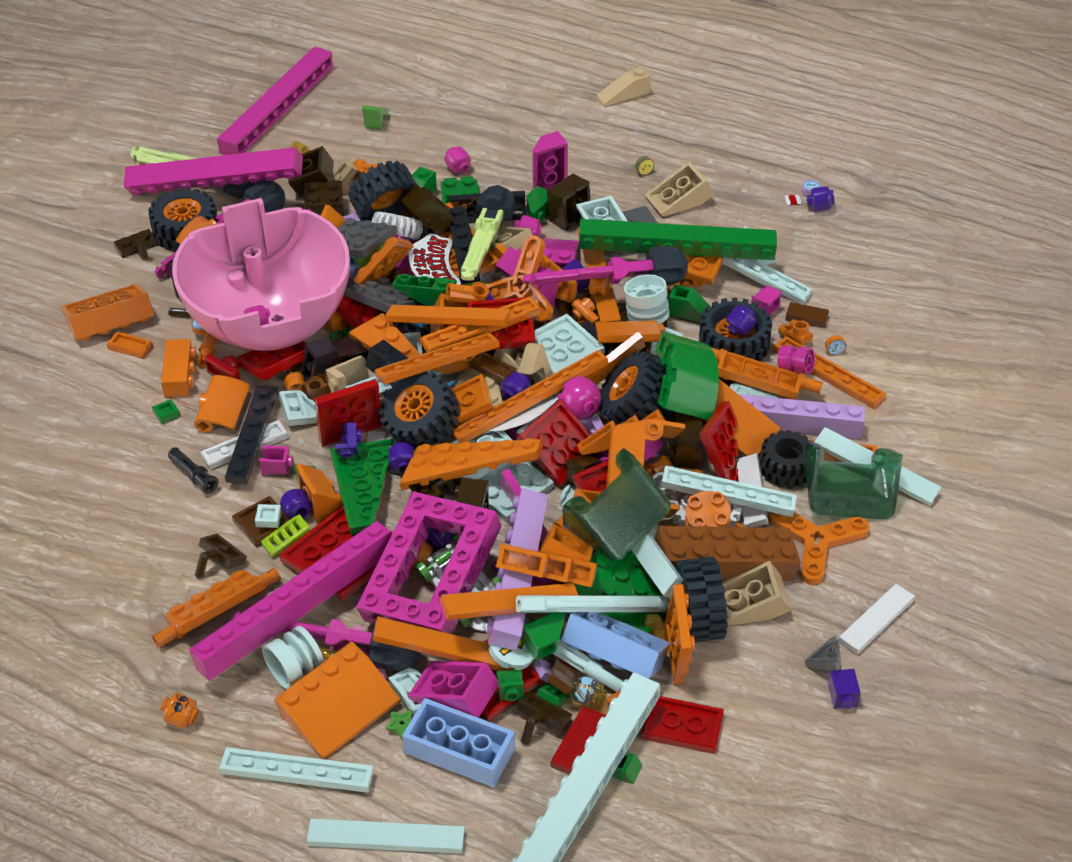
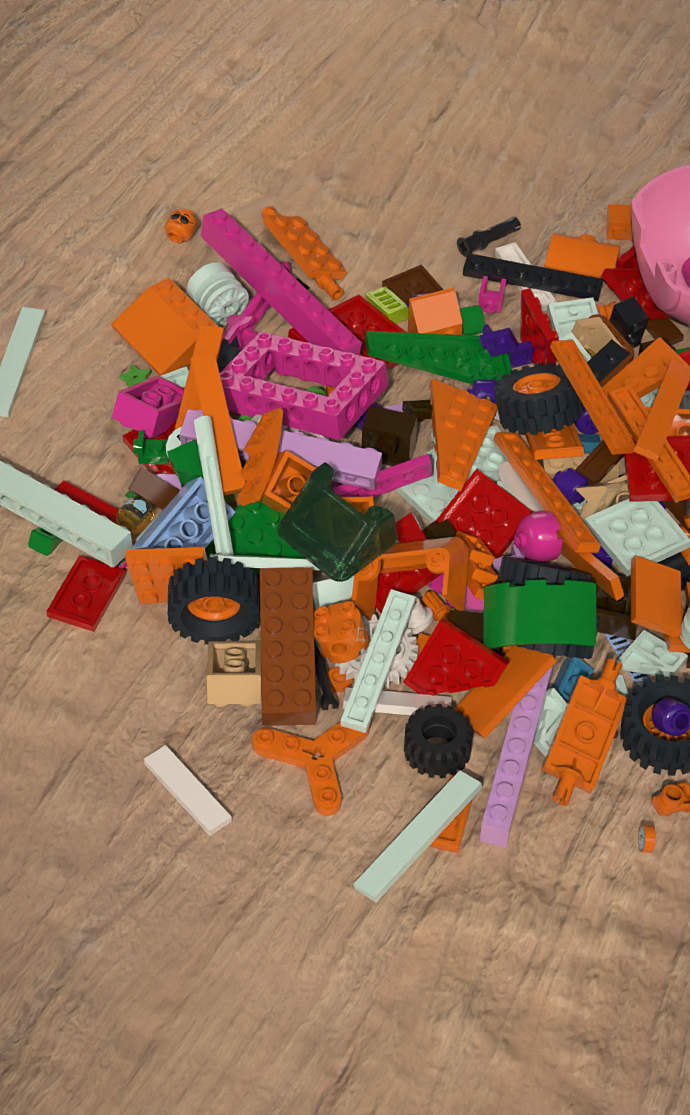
camera: 95 degrees right, 5 degrees up
(166, 411) = (581, 219): green tile -> none
(220, 549) = (371, 254): dark brown plate -> none
(268, 515) = (408, 283): light aqua plate -> none
(296, 769) = (99, 303): light aqua plate -> none
(459, 742) = (86, 413): light blue brick -> none
(544, 711) = (119, 478): dark brown plate -> none
(796, 359) = (612, 780): dark pink wheel -> none
(825, 657) = (137, 723): dark grey tile -> none
(840, 378) = (599, 829): orange tile -> none
(844, 688) = (91, 732): dark purple brick -> none
(853, 487) = (381, 785): clear green windscreen -> none

